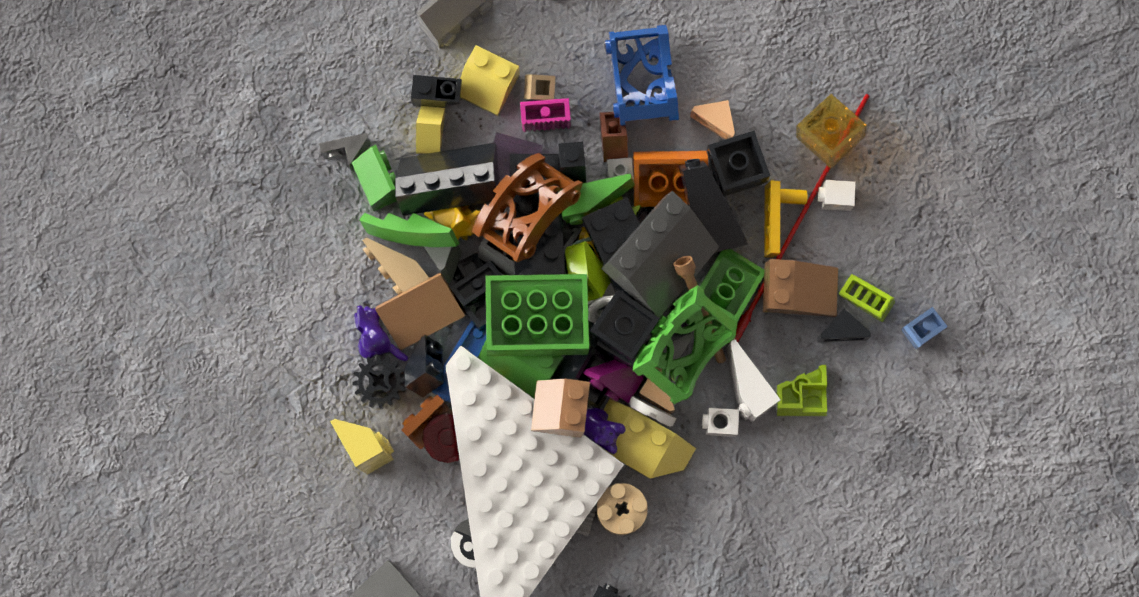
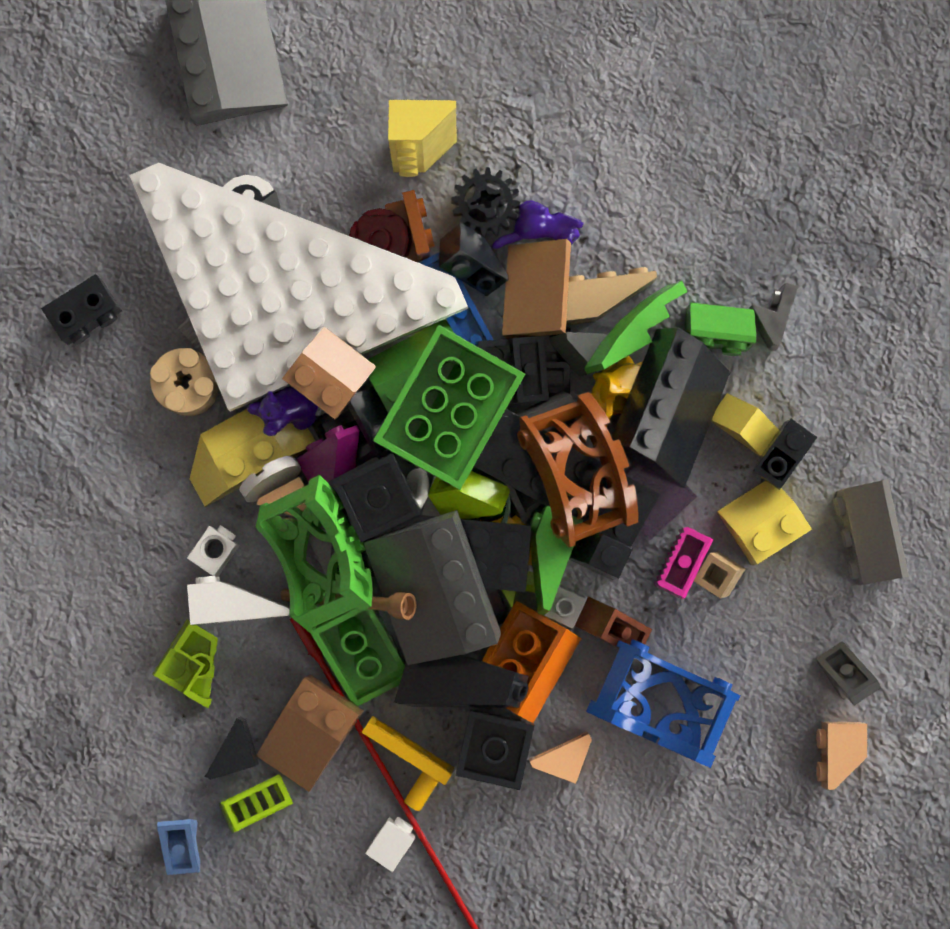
camera: 115 degrees right, 5 degrees up
(831, 131) = (469, 882): clear yellow brick -> none

